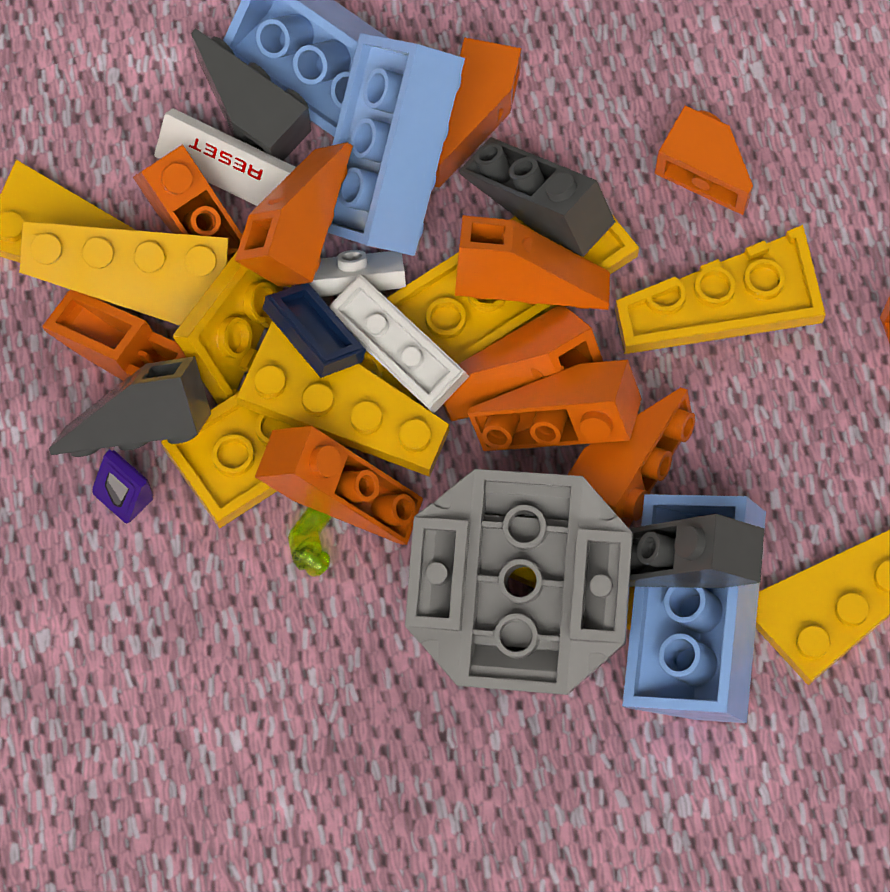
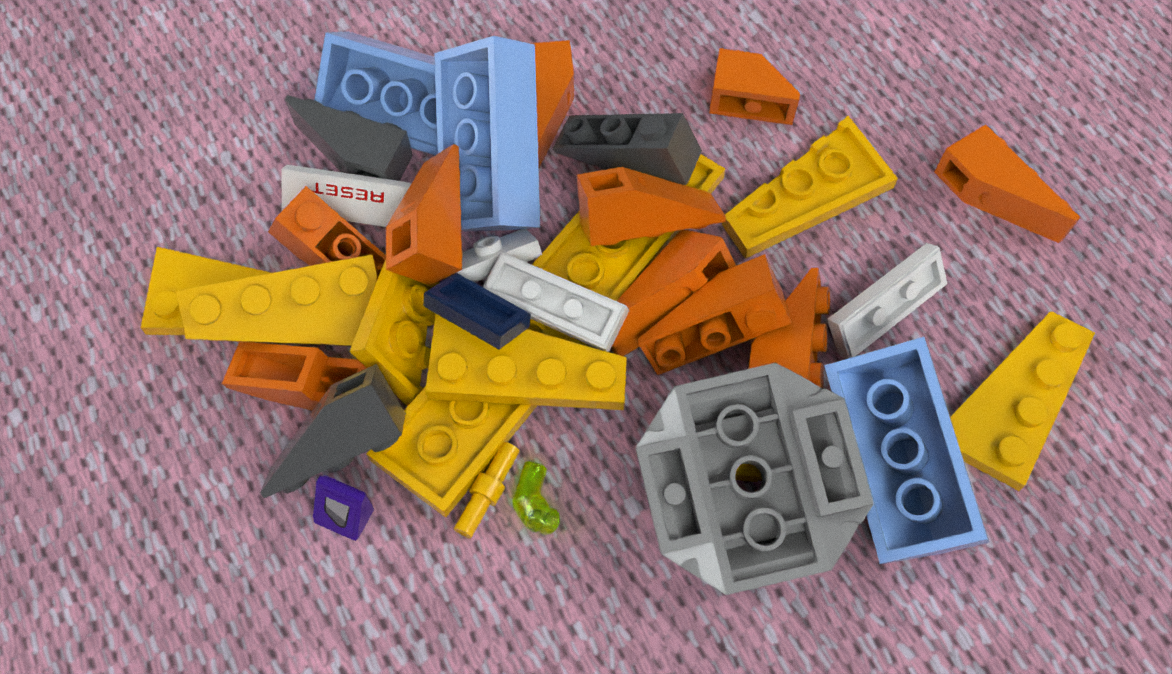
camera: 20 degrees left, 5 degrees down
(265, 516) = (486, 490): none -> yellow bar
(338, 483) = (542, 439): orange slope -> none
(697, 553) = (910, 398): dark grey slope -> none
(754, 447) = (887, 301): none -> white tile

